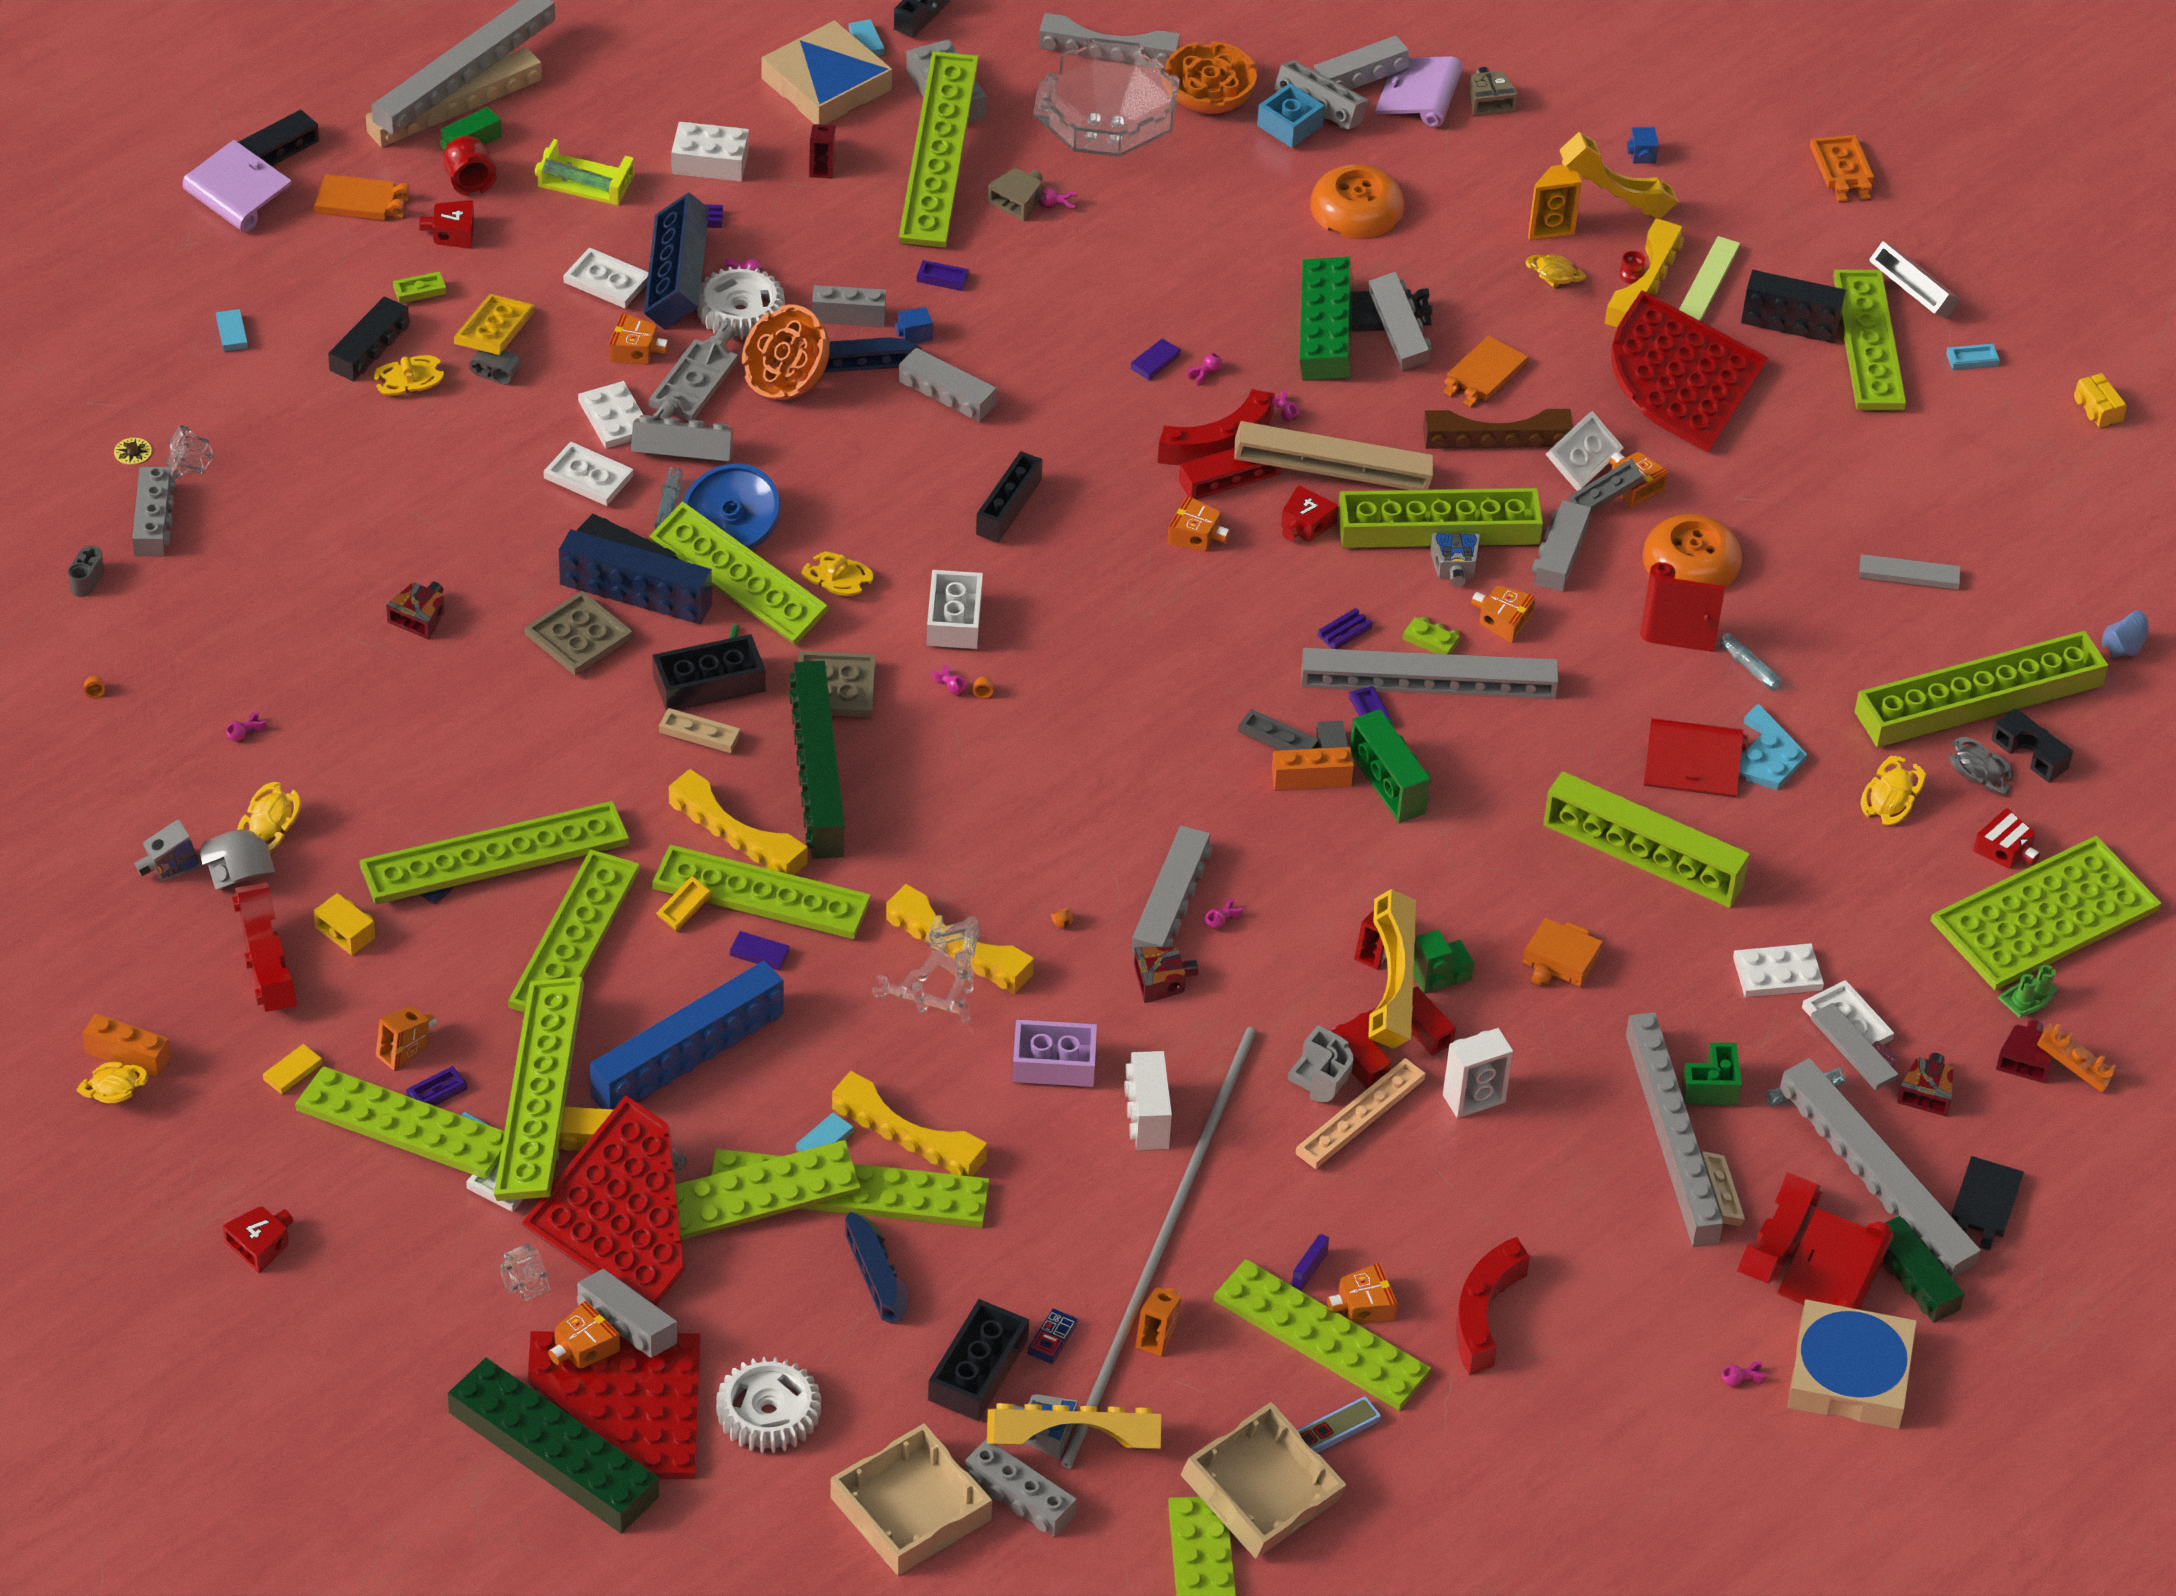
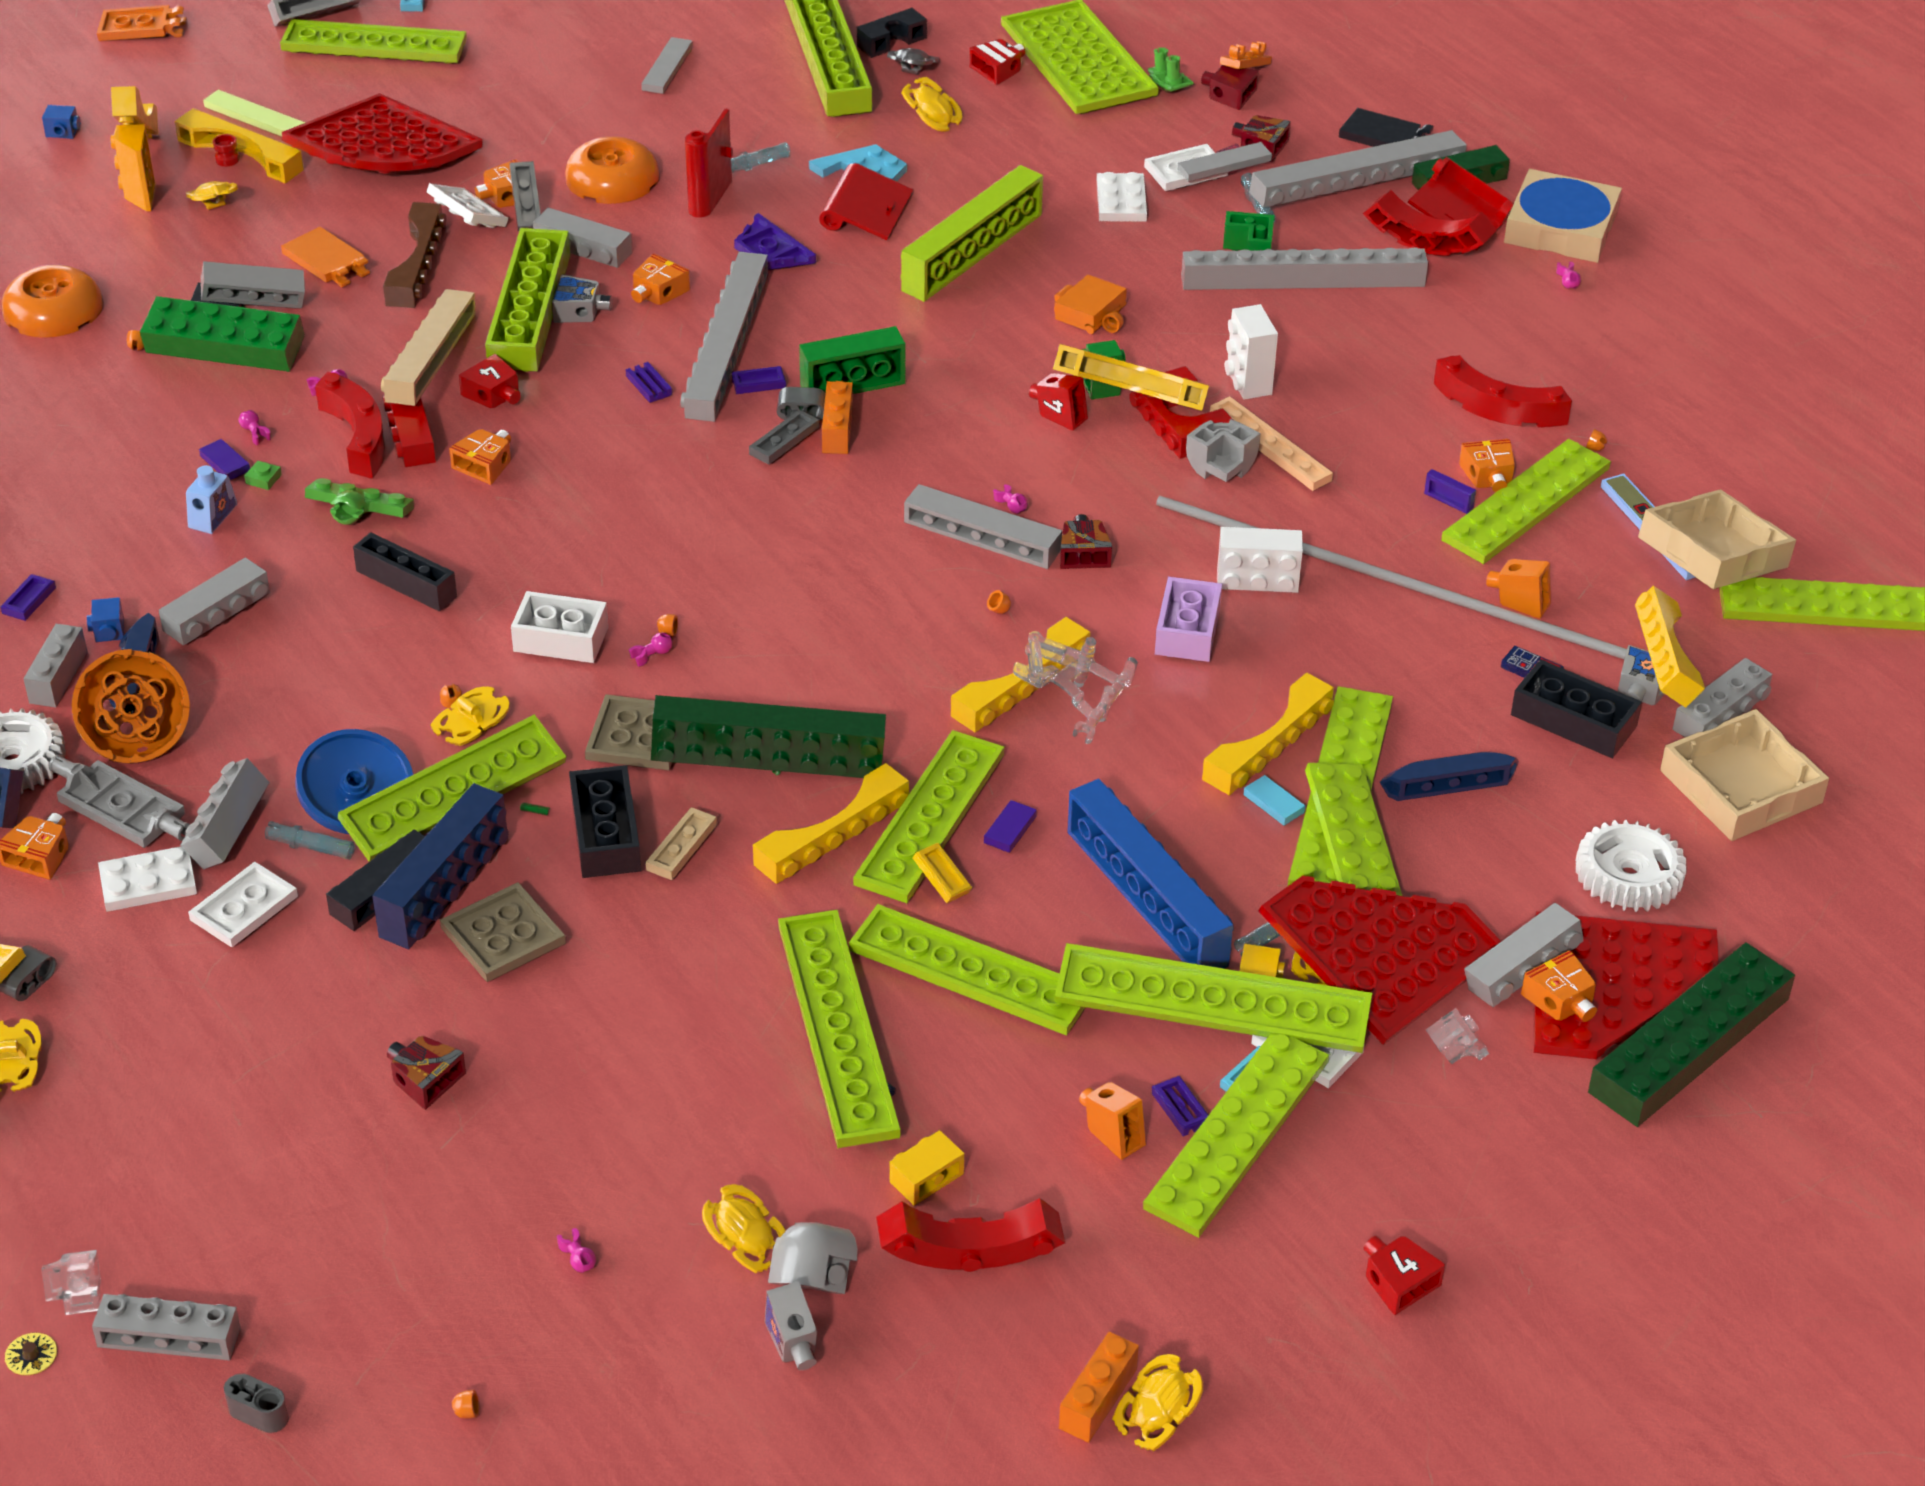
camera: 80 degrees left, 5 degrees down
(292, 1069) = (1140, 1233): yellow tile -> none
(866, 557) = (452, 689): none -> orange hinge
(1082, 355) = (209, 500): none -> light blue torso
(1111, 452) = (353, 502): none -> bright green plate
(1140, 388) = (263, 475): none -> bright green plate
(1431, 637) = (672, 333): lime plate -> none
(1434, 1392) = (1596, 441): none -> orange hinge
(1594, 689) = (768, 239): none -> dark purple wing
(1793, 306) = (326, 64): black brick -> none

